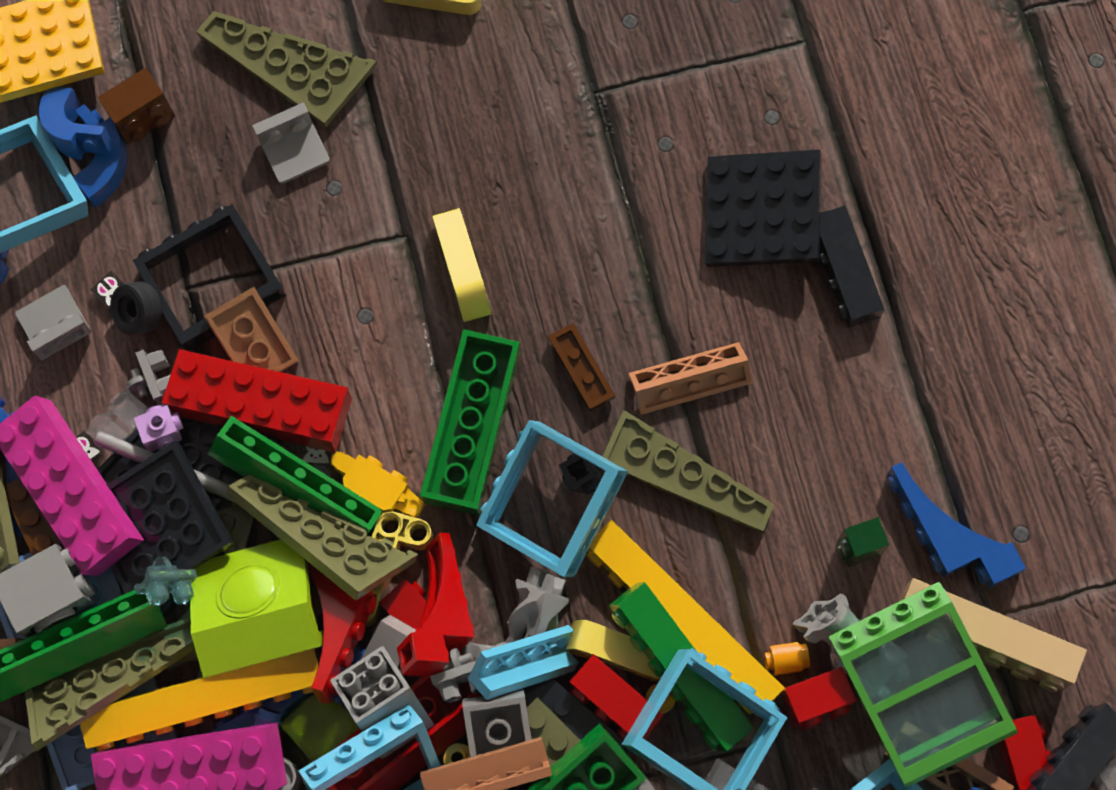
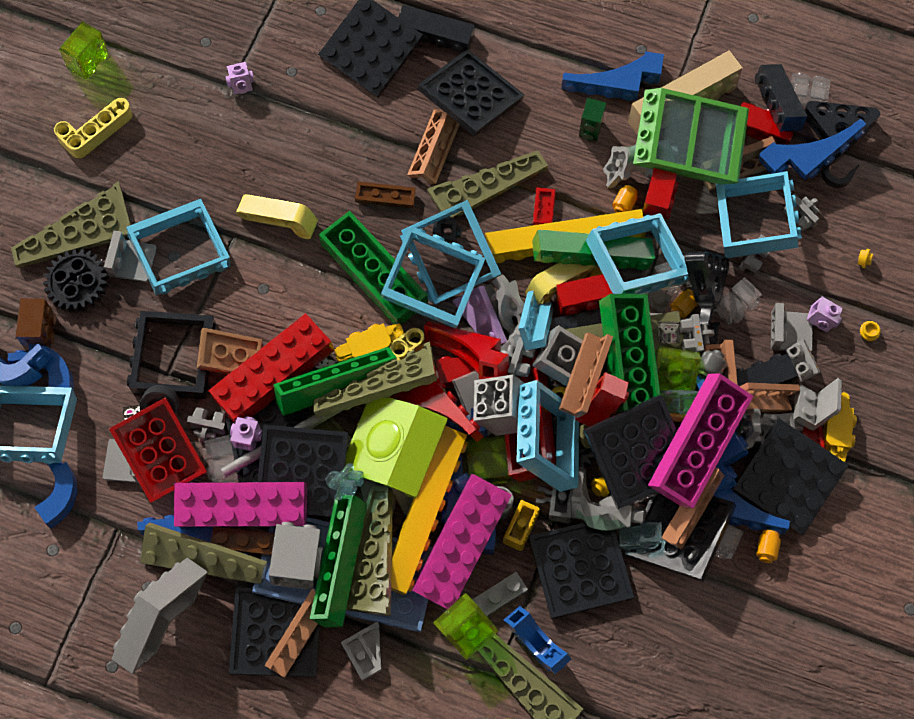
camera: 60 degrees left, 5 degrees down
(76, 347) = (157, 449): none -> red slope
(224, 108) = (67, 268): none -> black gear
(359, 145) = (170, 219): none -> medium azure window
(448, 511) = (438, 243): none -> medium azure window
(502, 590) = (481, 314): none -> lavender wing
(604, 93) = (239, 78): none -> lavender brick
(704, 565) = (544, 206): none -> red plate
(788, 370) = (470, 92): none -> black plate

